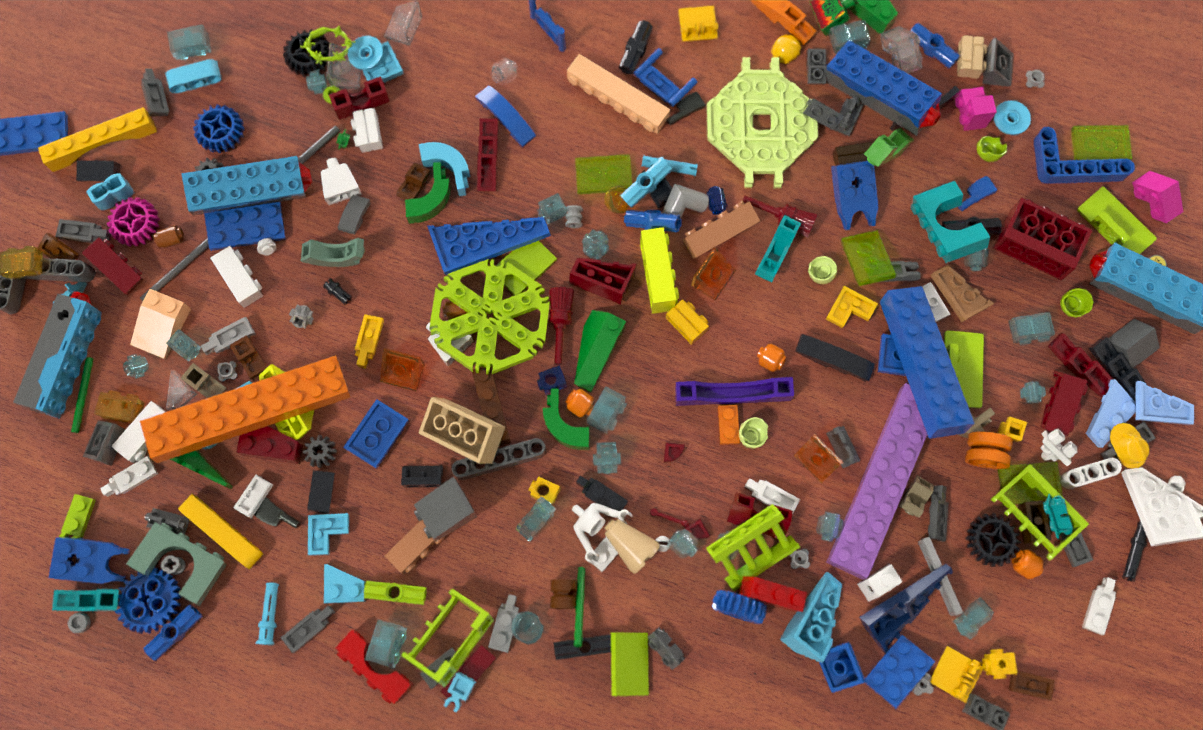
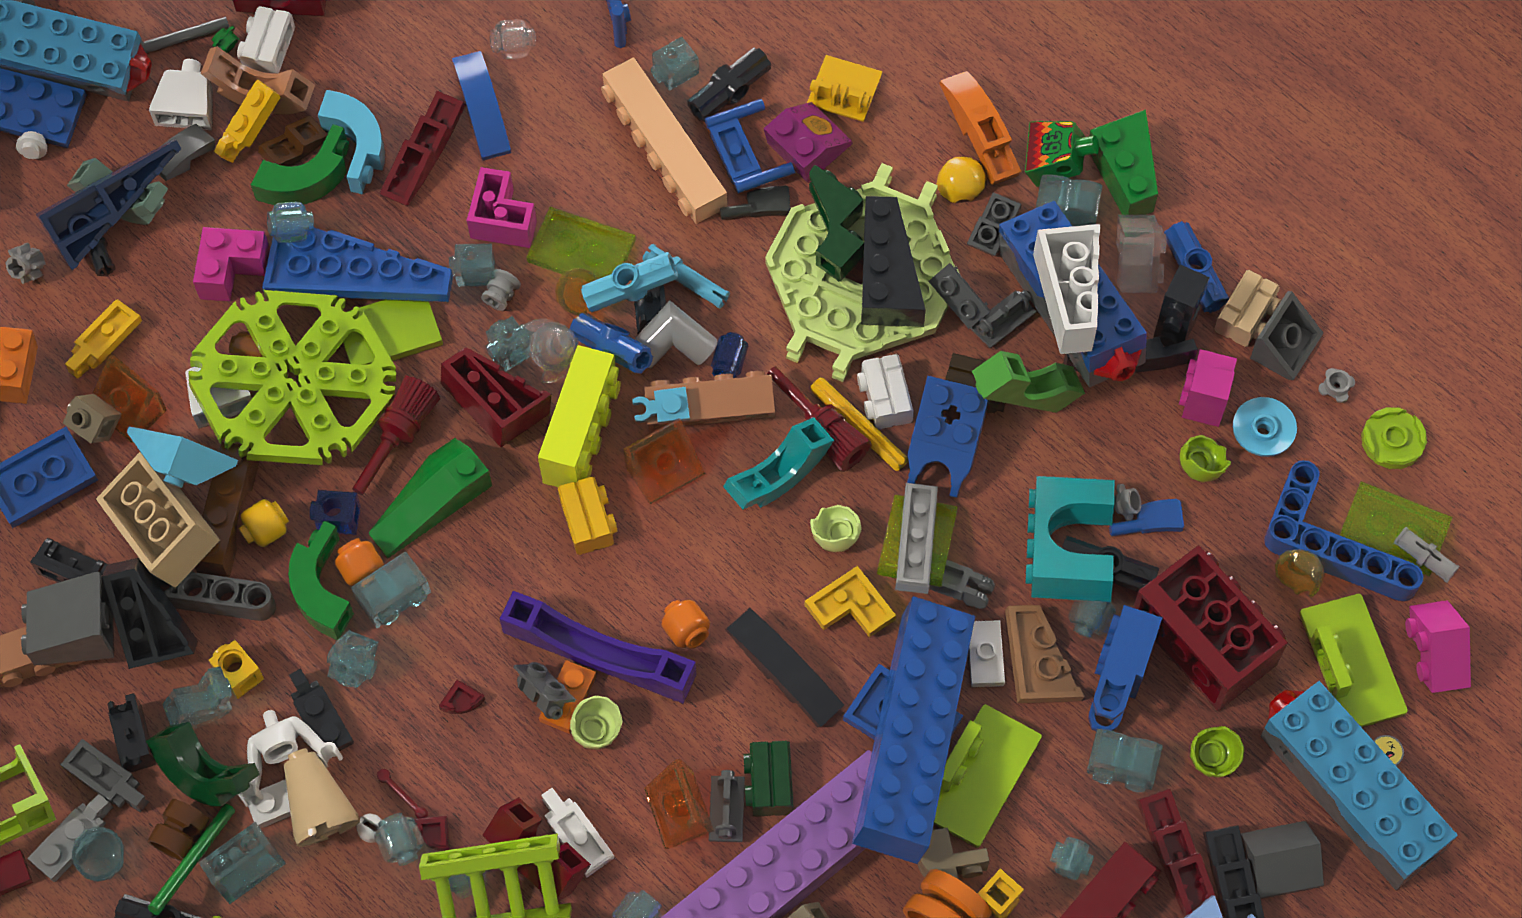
camera: 25 degrees right, 10 degrees down
(323, 274) = (86, 215): none -> dark blue wedge
(378, 160) = (237, 79): none -> nougat arch
(383, 180) = (247, 121): none -> yellow hinge
(388, 388) = (91, 418): none -> dark tan brick
(412, 261) = (223, 255): none -> dark pink brick
(440, 229) = (289, 222): none -> clear light blue head
(456, 391) = (179, 458): none -> medium azure wedge
(484, 487) = (145, 616): none -> black wedge
(504, 583) = (104, 776): none -> dark grey hinge
(506, 554) = (131, 734): none -> black hinge
(516, 404) = (263, 523): none -> yellow head
(551, 176) = (495, 215): none -> dark pink brick
(556, 558) = (194, 770): none -> dark green arch
(600, 48) = (674, 63): none -> clear light blue brick
(608, 596) = (242, 863): none -> clear light blue brick
(623, 235) = (551, 347): none -> clear helmet
(694, 61) = (806, 138): none -> magenta slope
(703, 242) = (668, 406): none -> medium azure plate
(709, 424) = (543, 688): none -> dark grey hinge
(734, 93) = (839, 211): none -> dark green arch
(782, 119) = (889, 276): none -> black wedge
(782, 200) = (880, 443): none -> yellow axle
(809, 183) = (886, 392): none -> white brick
(858, 420) = (770, 778): none -> dark green brick
(870, 257) = (916, 538): none -> light grey tile
(892, 83) = (1069, 281): none -> white wedge
(947, 68) = (1180, 306): none -> black arch
(964, 187) = (1127, 502): none -> light grey plate
(1009, 278) = (1122, 664): none -> blue brick
(1070, 187) = (1300, 571): none -> clear yellow hair
(1076, 95) = (1393, 438): none -> lime tile
(1128, 151) = (1426, 554): none -> light grey pin

